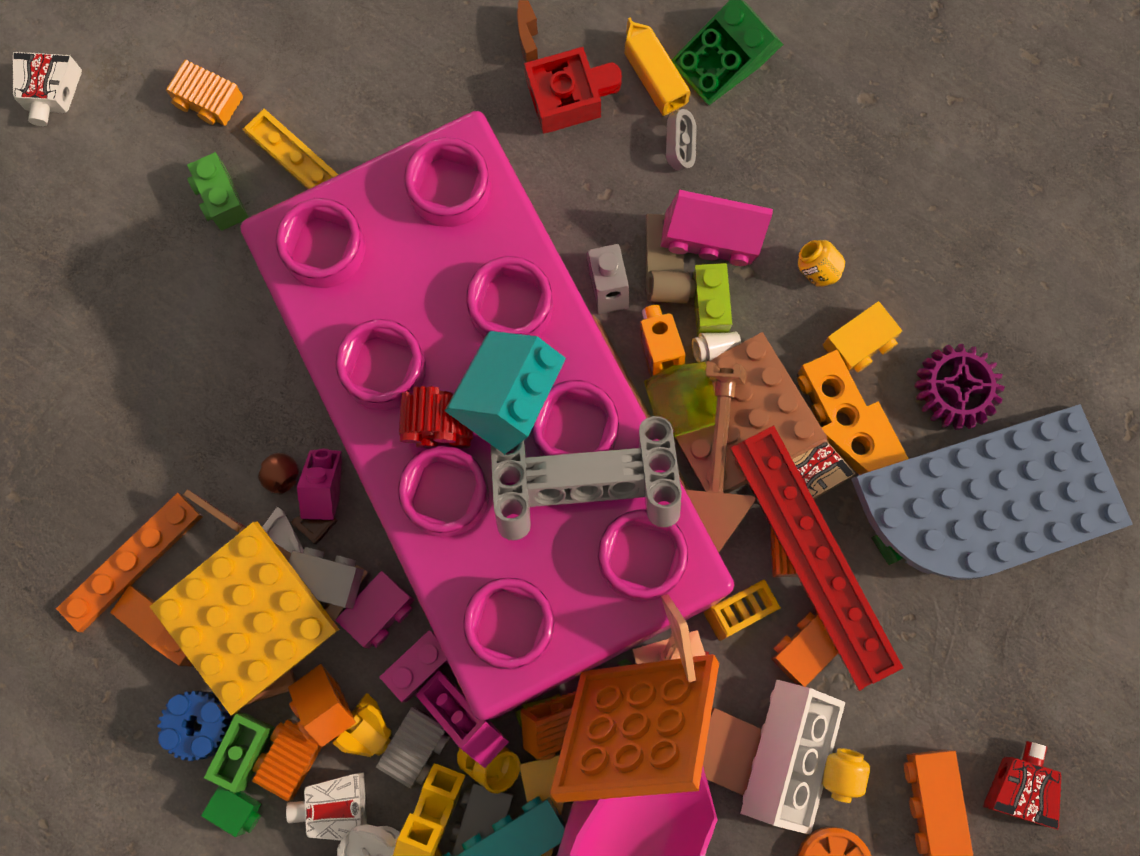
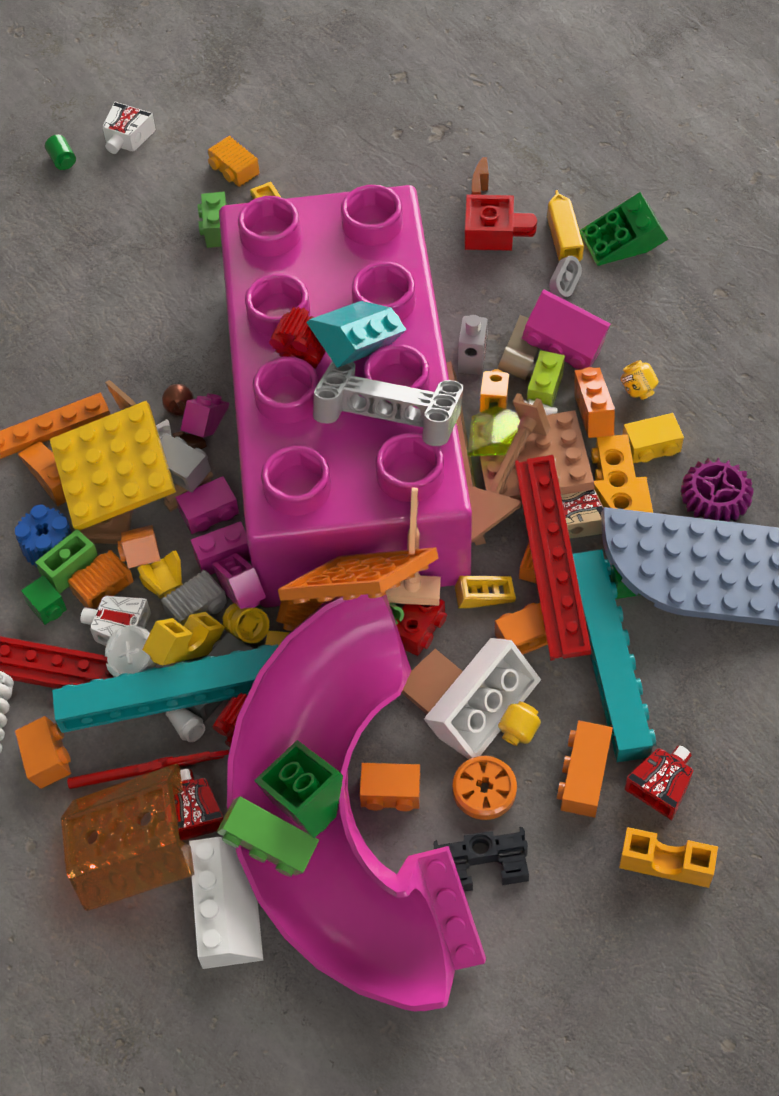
camera: 20 degrees right, 20 degrees down
(784, 318) = (594, 402): none -> orange brick
(924, 659) = (611, 660): none -> teal brick

